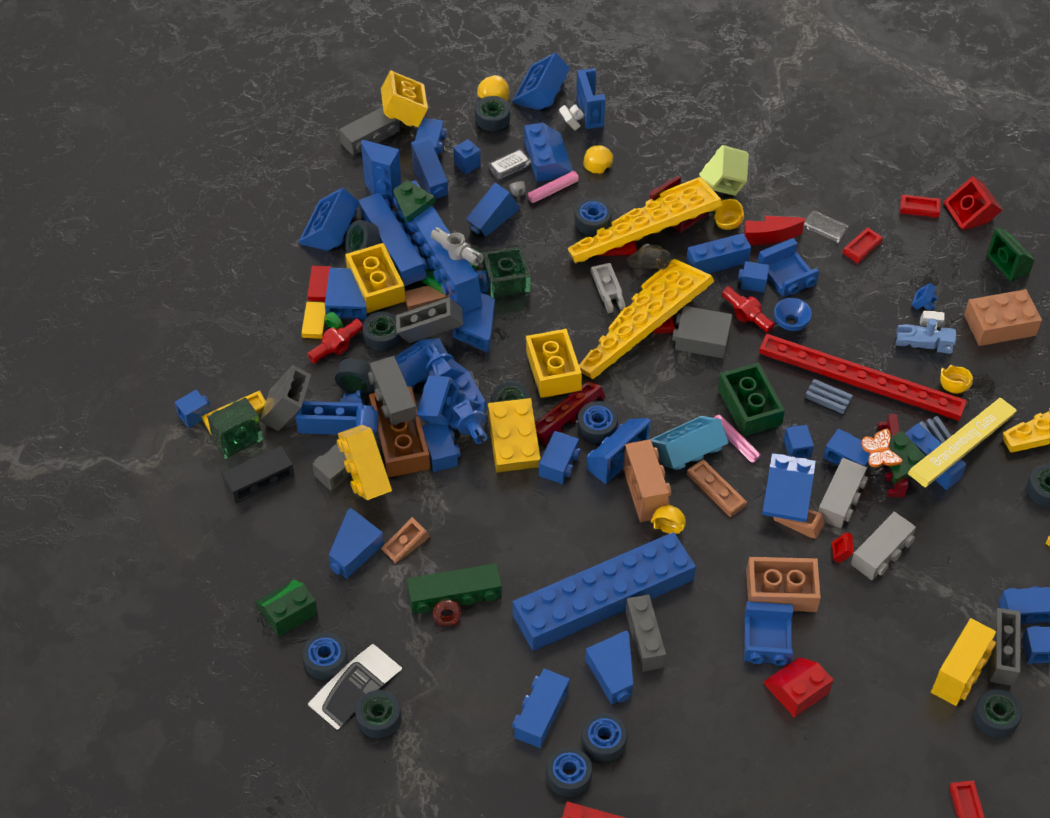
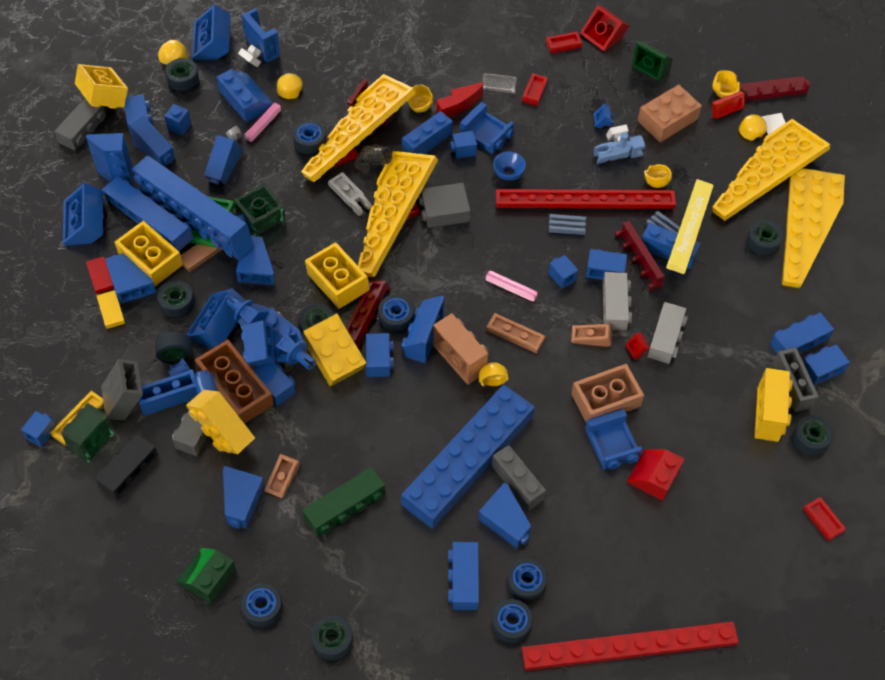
camera: 25 degrees left, 5 degrees up
(333, 321) = (129, 305): green tile -> none
(335, 341) = (138, 322): red pin -> none
(361, 235) = (120, 221): wheel -> none
(363, 674) = (296, 621): sticker -> none
(392, 391) = (215, 349): dark grey brick -> none
(412, 200) = (154, 174): dark green wing -> none
(429, 320) = (215, 275): dark grey brick -> none
(443, 605) = (351, 531): clear red piece -> none
(456, 246) = (216, 203): light grey pin -> none
(509, 163) = (216, 114): tile -> none
(690, 441) = (478, 301): dark azure slope -> none
(726, 170) = (403, 62): yellowish green slope -> none
(747, 309) = (471, 174): red pin -> none
(751, 399) = (510, 249): dark green brick -> none
(788, 487) = (574, 312): blue slope -> none
(880, 450) = (632, 256): orange animal -> none
(908, 452) = (651, 254): dark green wing -> none

